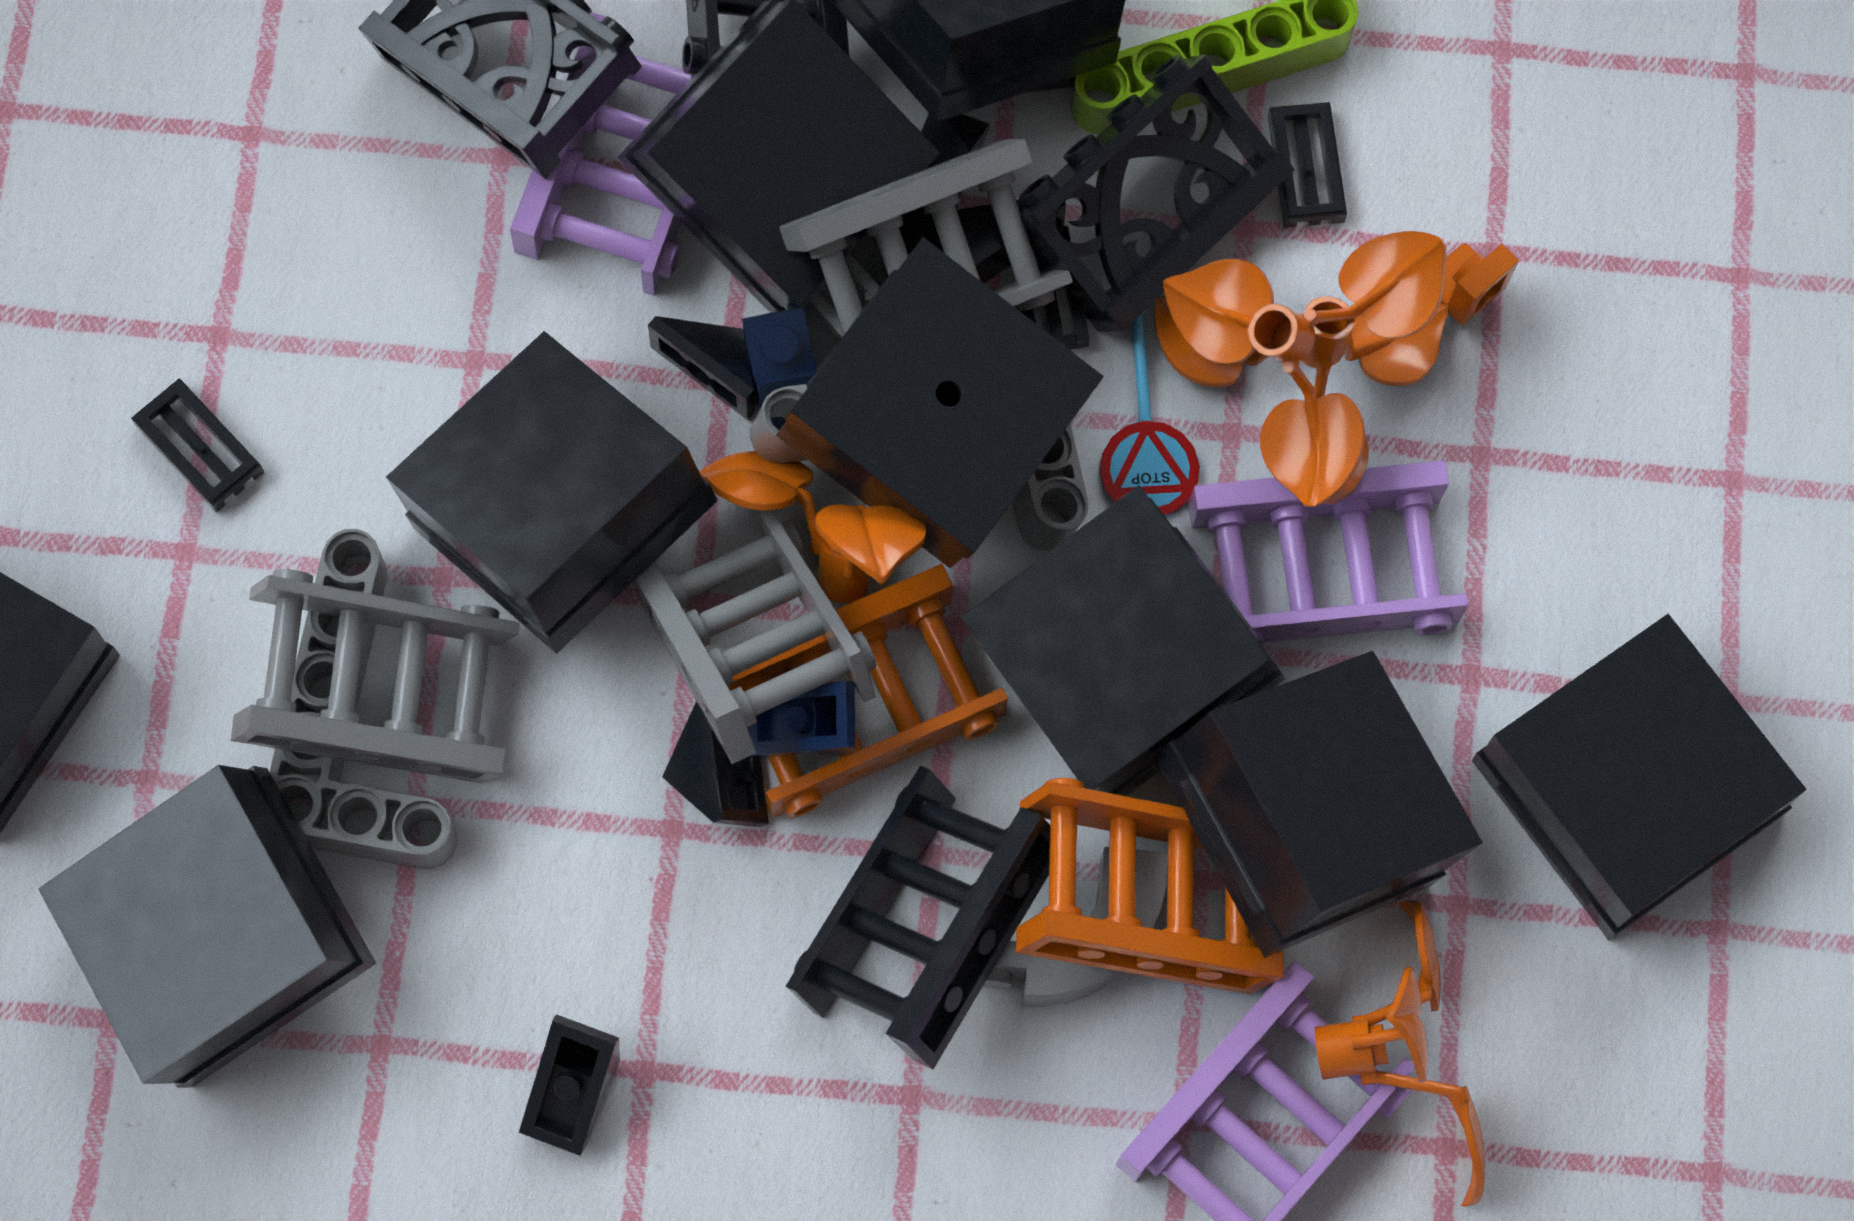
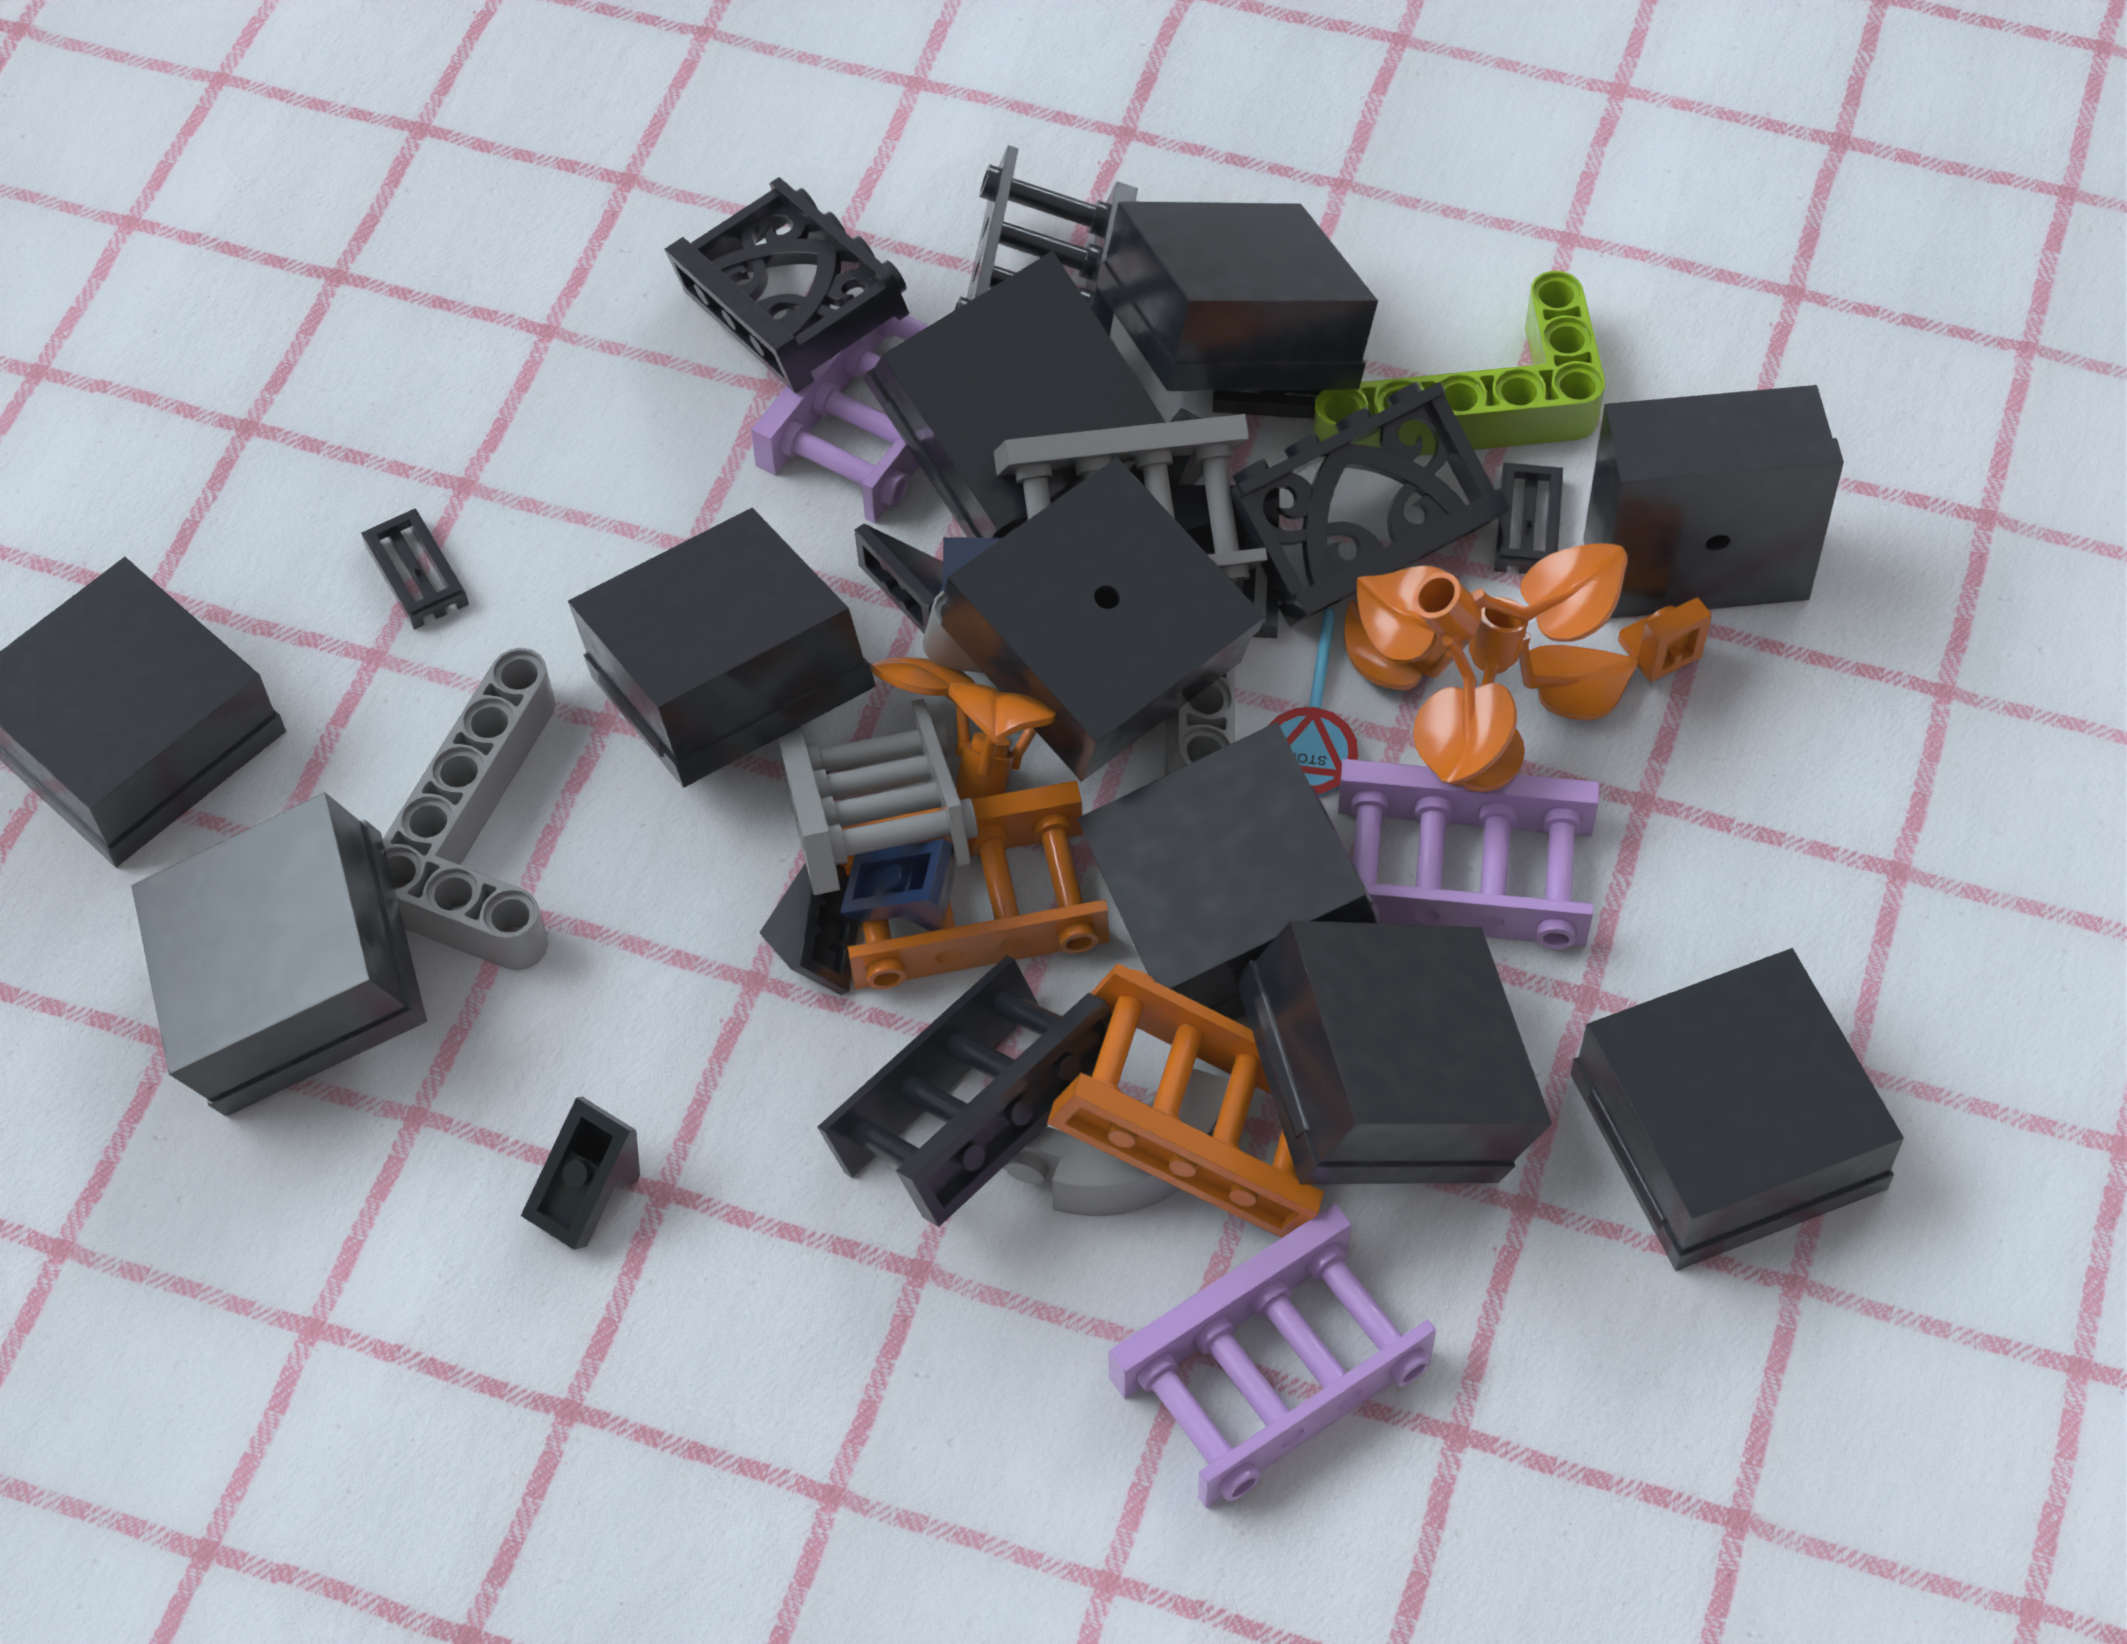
camera: 20 degrees right, 15 degrees down
(338, 729) = (454, 806): light grey fence -> none
(1361, 1045) = (1383, 1293): orange plant -> none
(1498, 134) = (1715, 497): none -> black container

